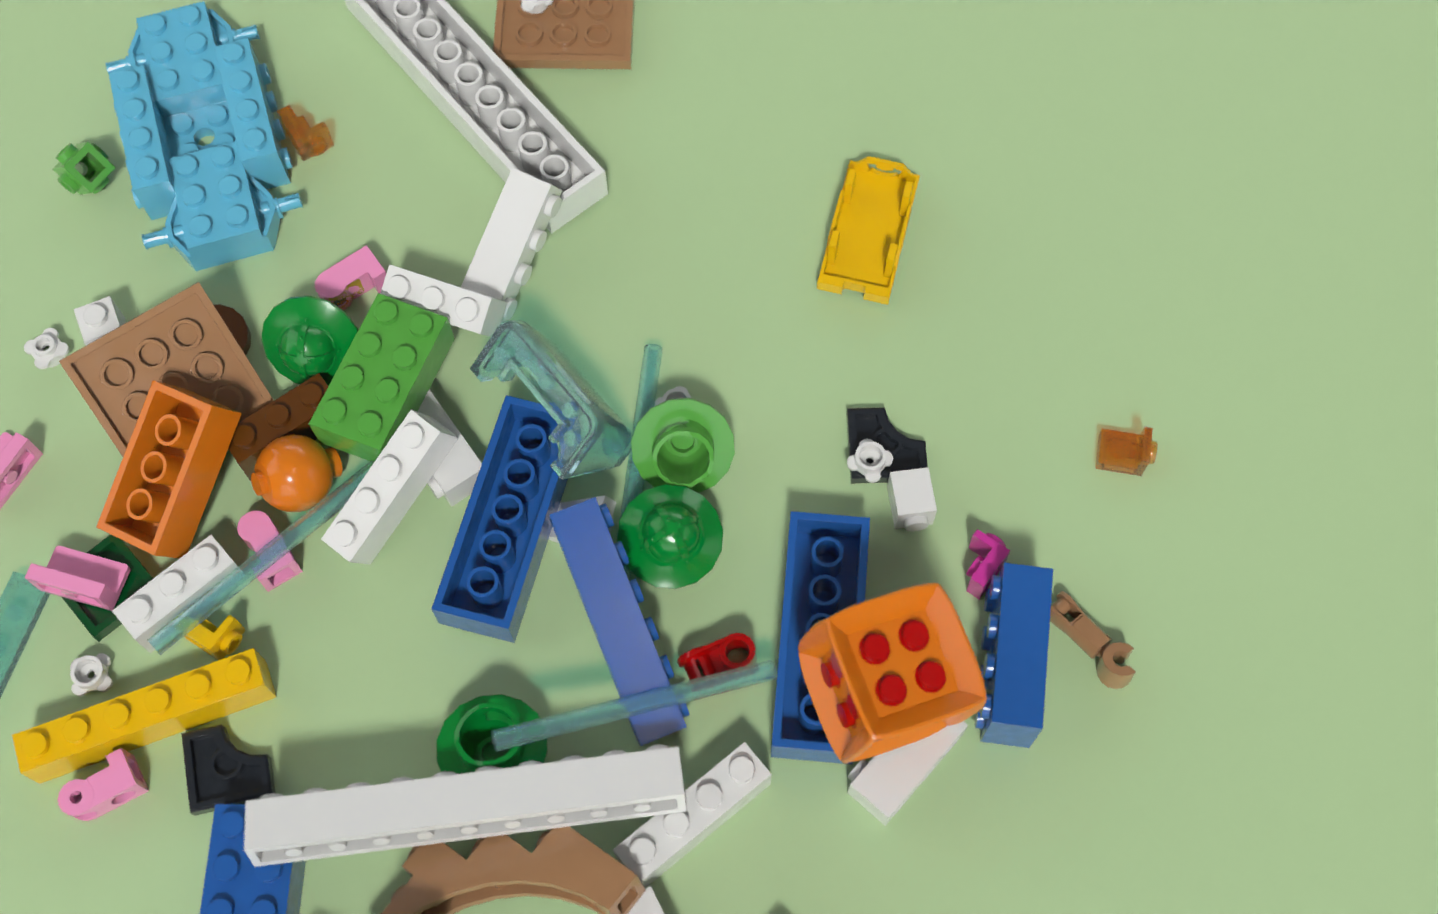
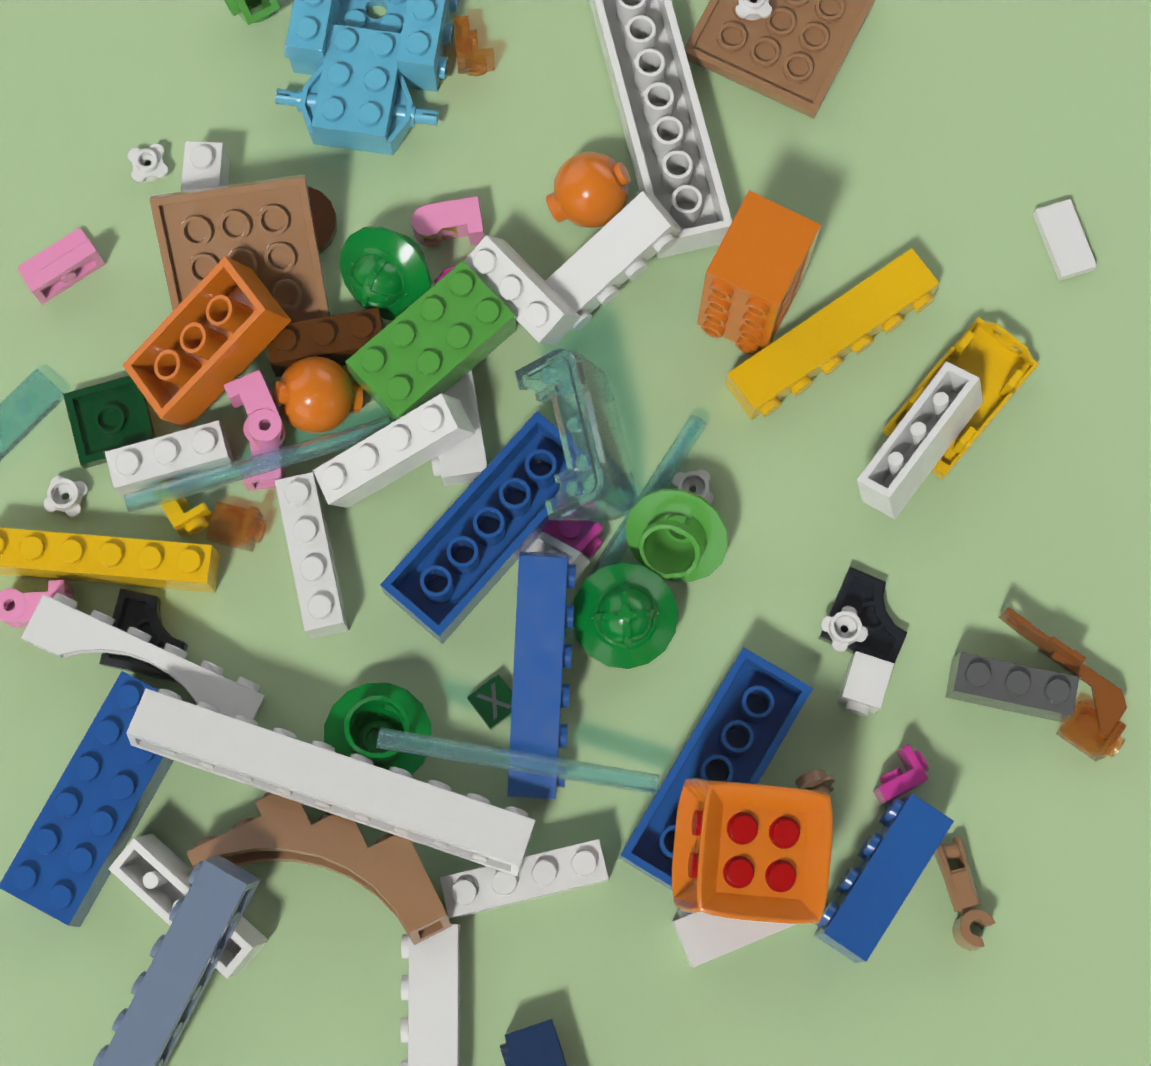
camera: 25 degrees right, 10 degrees up
(80, 577) = (92, 404): bright pink panel -> none
(145, 791) = (69, 632): none -> white arch
(247, 505) = (264, 419): none -> bright pink leg
(271, 626) = (236, 526): none -> clear orange bracket
(355, 618) = (311, 555): none -> white brick
(463, 198) = (589, 190): none -> orange brick
(586, 672) = (492, 701): none -> dark green tile
(591, 486) = (578, 534): none -> dark pink bracket
(645, 195) = (756, 273): none -> orange brick
(713, 656) = (611, 747): red piece -> none
(732, 229) = (832, 334): none -> yellow brick
(854, 273) = (920, 440): none -> white brick
(888, 75) = (1064, 240): none -> white tile
(1038, 443) = (1012, 687): none -> dark grey brick
(1074, 398) = (1107, 697): none -> dark orange piece

